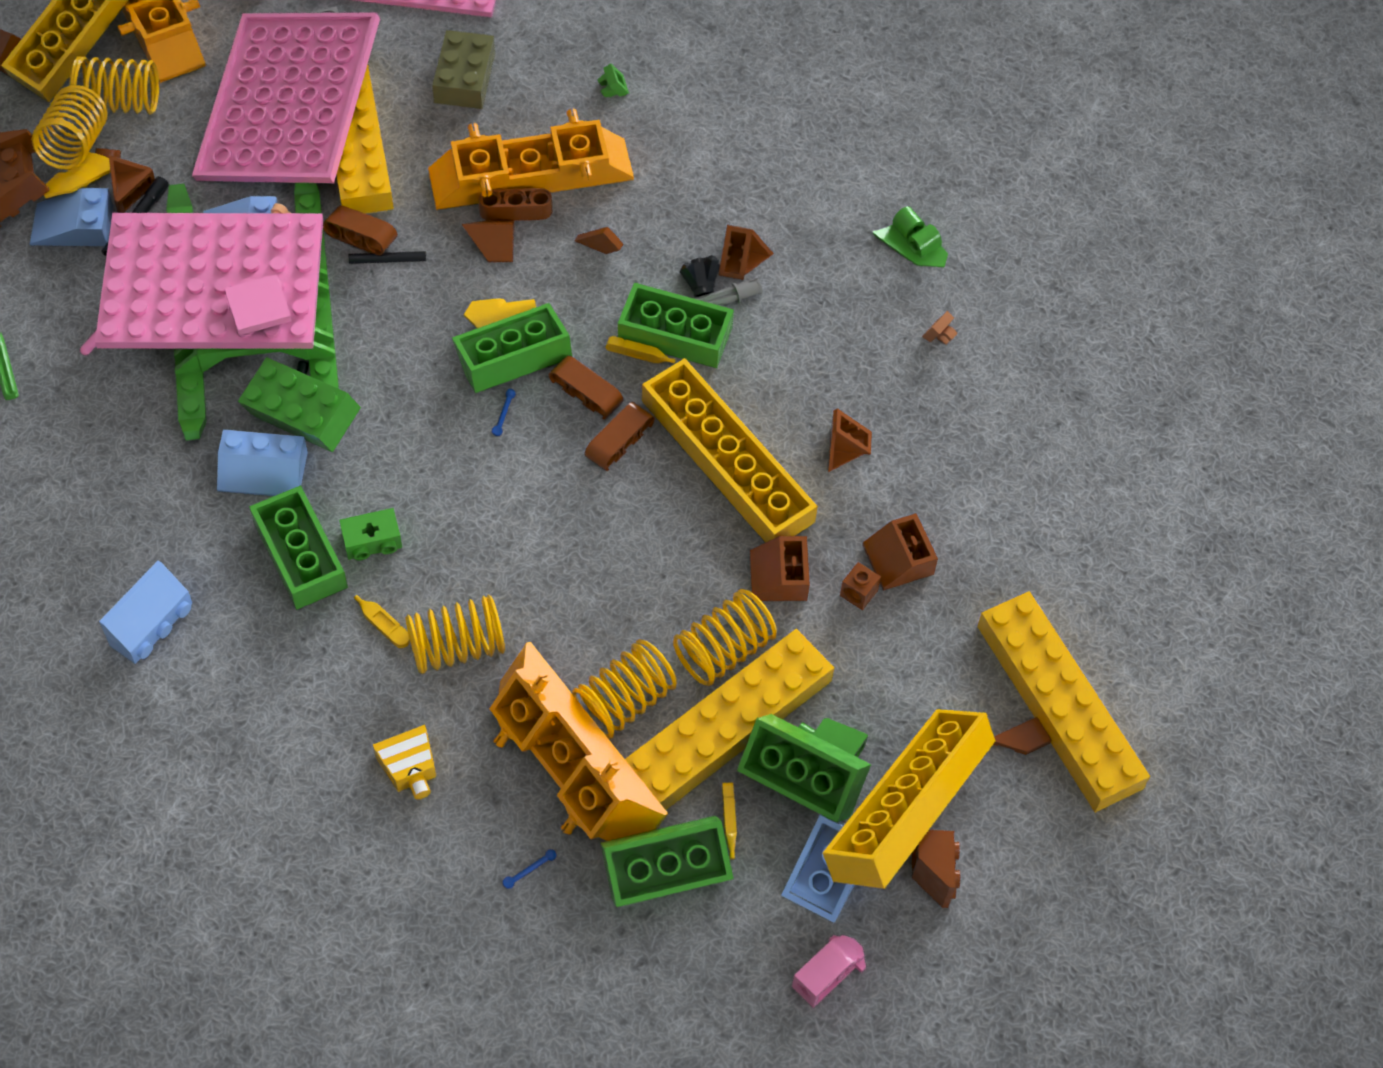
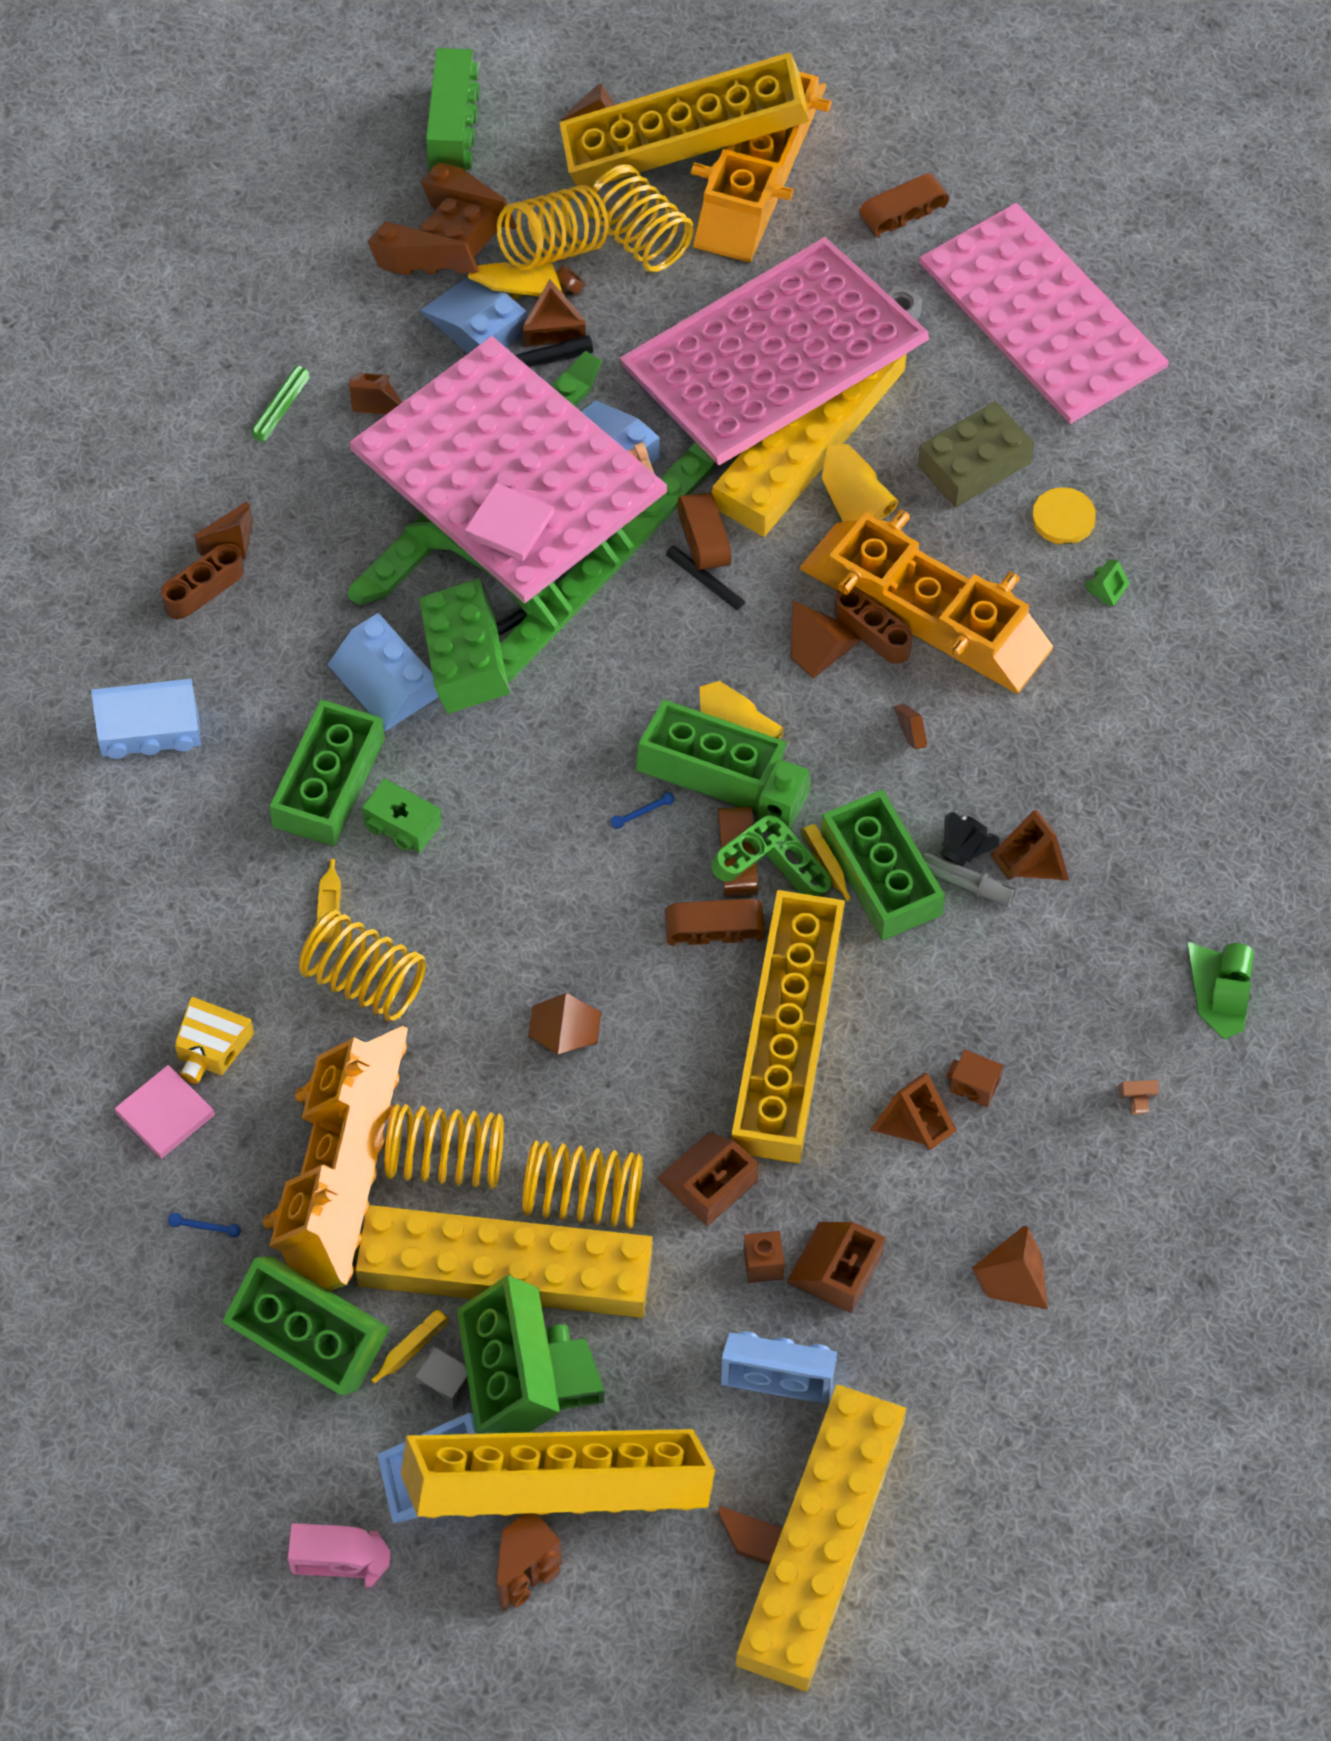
camera: 50 degrees right, 0 degrees up
(61, 313) = (372, 394): none -> dark orange slope
(66, 466) = (230, 528): none -> dark orange slope
(78, 496) = (208, 568): none -> dark orange beam
(416, 139) = (854, 485): none -> yellow panel
(430, 827) = (164, 1112): none -> bright pink tile
(547, 66) = (1063, 515): none -> yellow tile
(581, 329) = (786, 789): none -> bright green torso
(601, 566) = (564, 1024): none -> dark orange slope
(637, 367) = (774, 847): none -> bright green beam
(770, 816) = (442, 1377): none -> light grey brick
(852, 394) = (974, 1077): none -> dark orange brick
(938, 634) = (778, 1367): none -> light blue slope
(988, 475) = (1014, 1271): none -> dark orange slope

